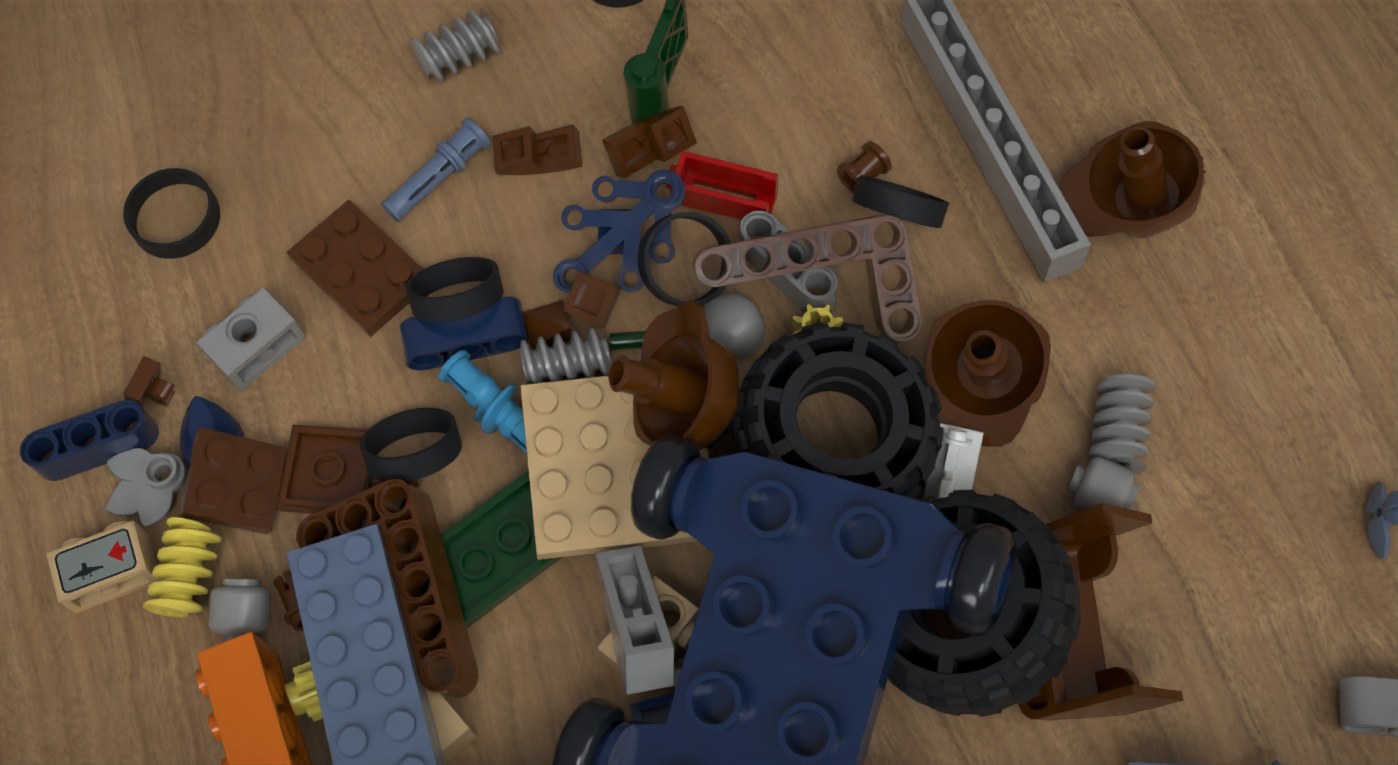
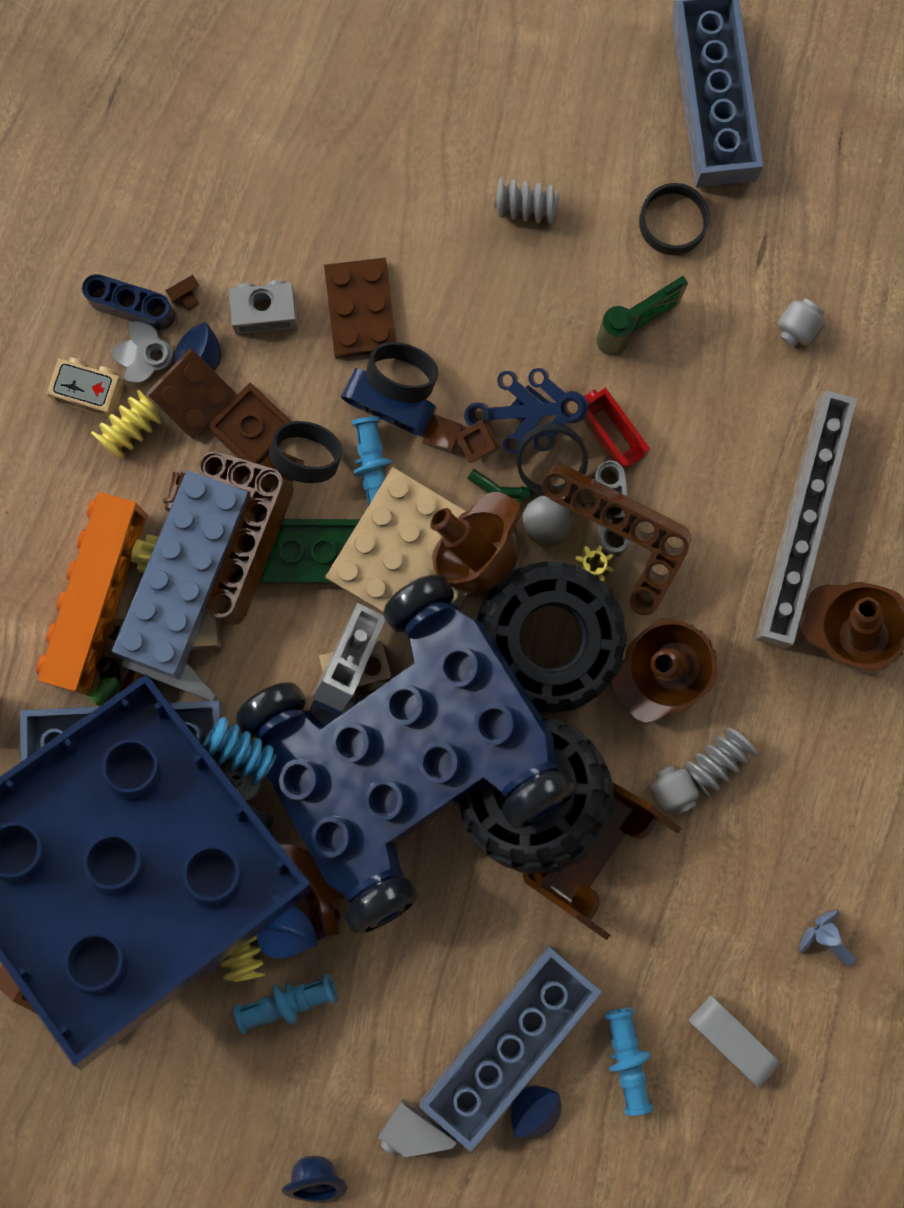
camera: 30 degrees right, 15 degrees up
(155, 182) = (272, 152): black tyre -> none
(239, 608) = (142, 474): light grey head -> none
(449, 158) = (466, 276): sand blue pin -> none
(532, 153) = (522, 313): reddish brown slope -> none
(566, 359) = (434, 468): light grey piece -> none
(649, 140) = (600, 362): reddish brown slope -> none
(868, 163) = (709, 482): reddish brown bush -> none
(900, 201) = (697, 531): black tyre -> none
(955, 461) = (600, 711): white hinge -> none

